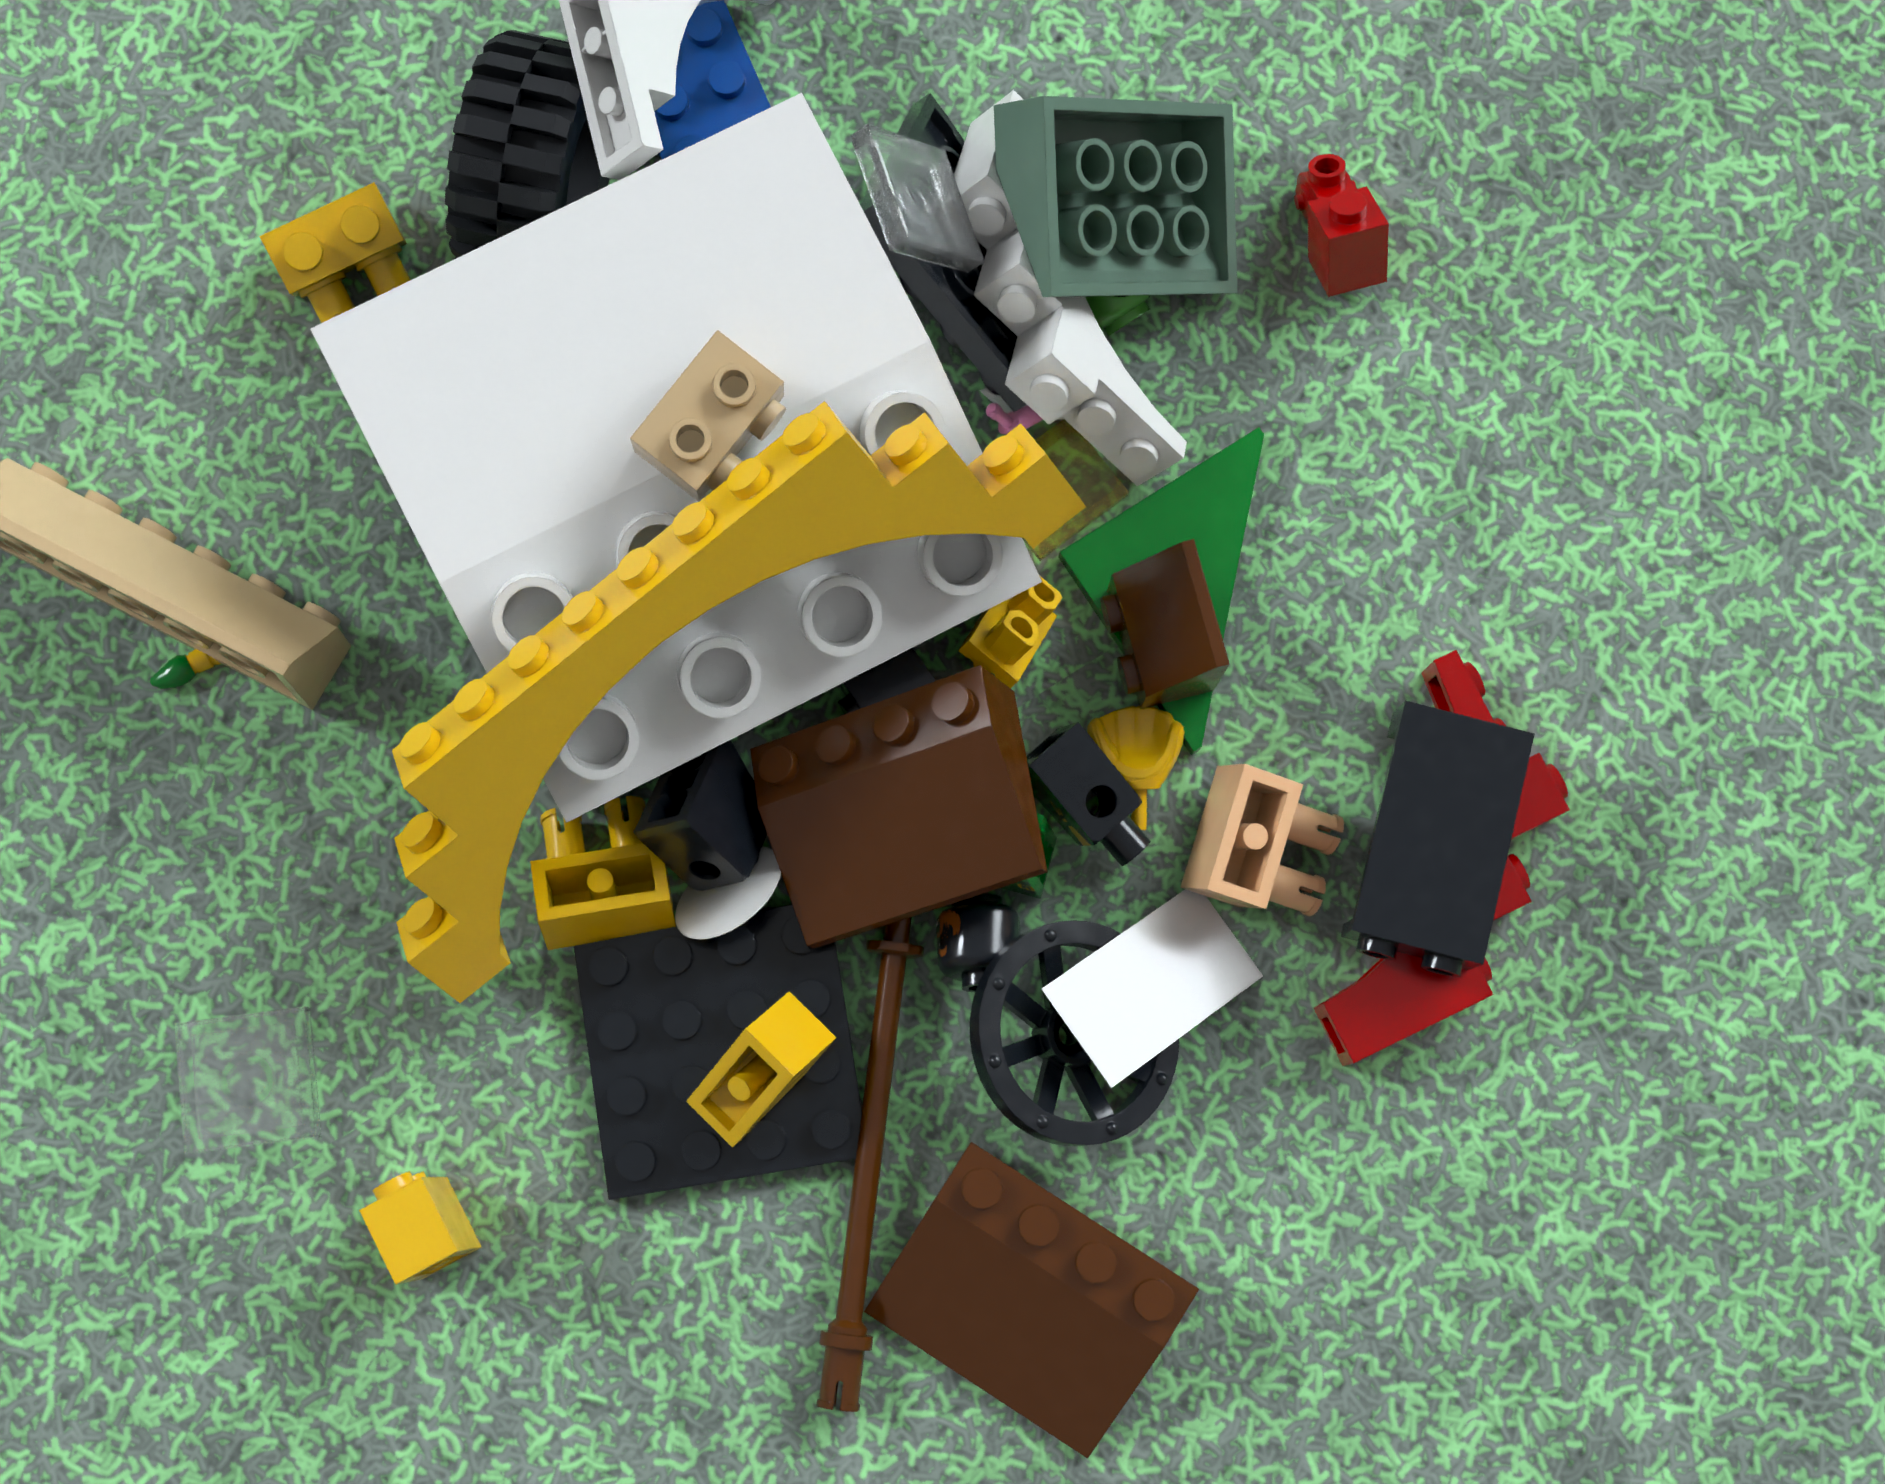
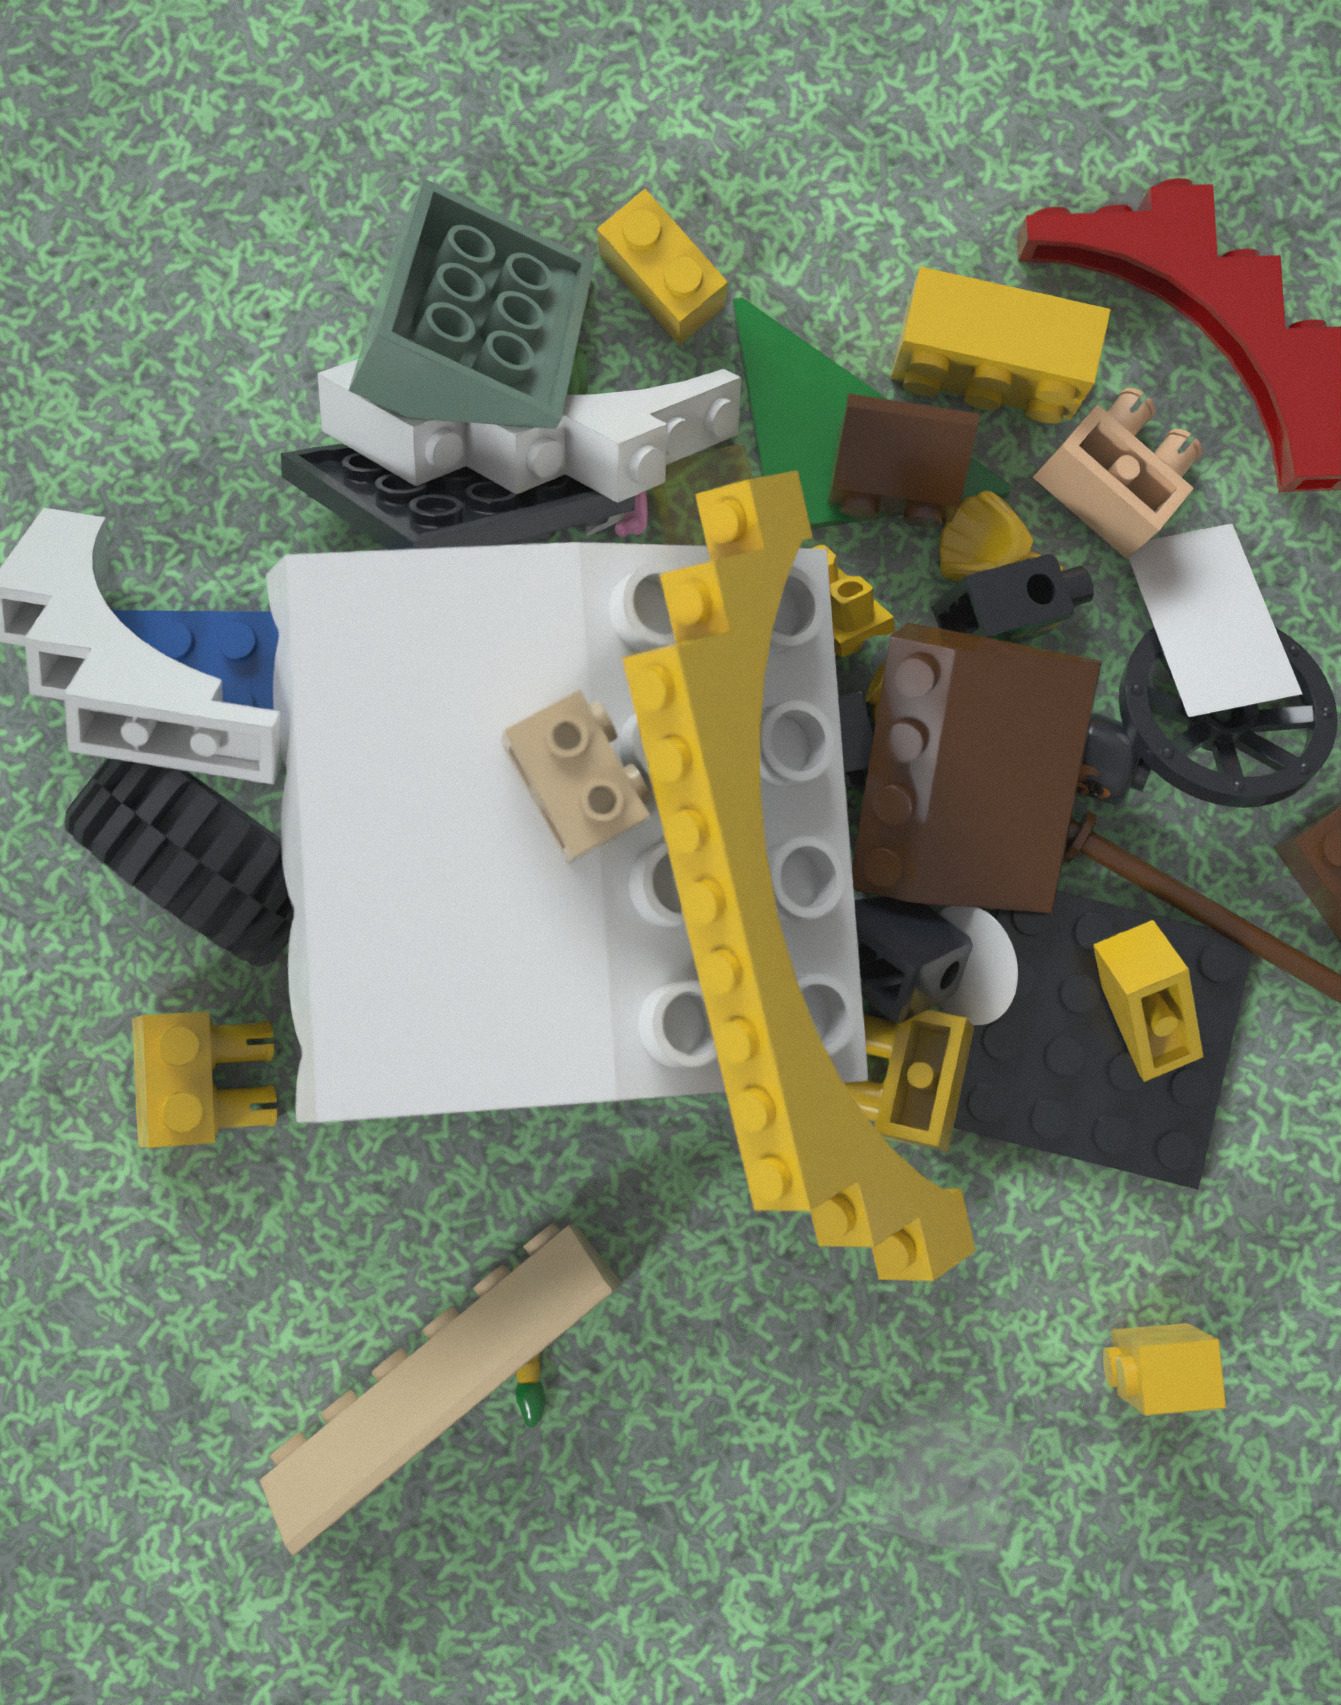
camera: 65 degrees left, 5 degrees up
(916, 199) = (413, 501): clear tile -> none
(1255, 349) = (662, 266): none -> yellow brick
(1318, 673) = (999, 345): none -> yellow piece
(1343, 227) = (584, 131): red brick -> none
(1440, 839) = (1204, 302): black panel -> none

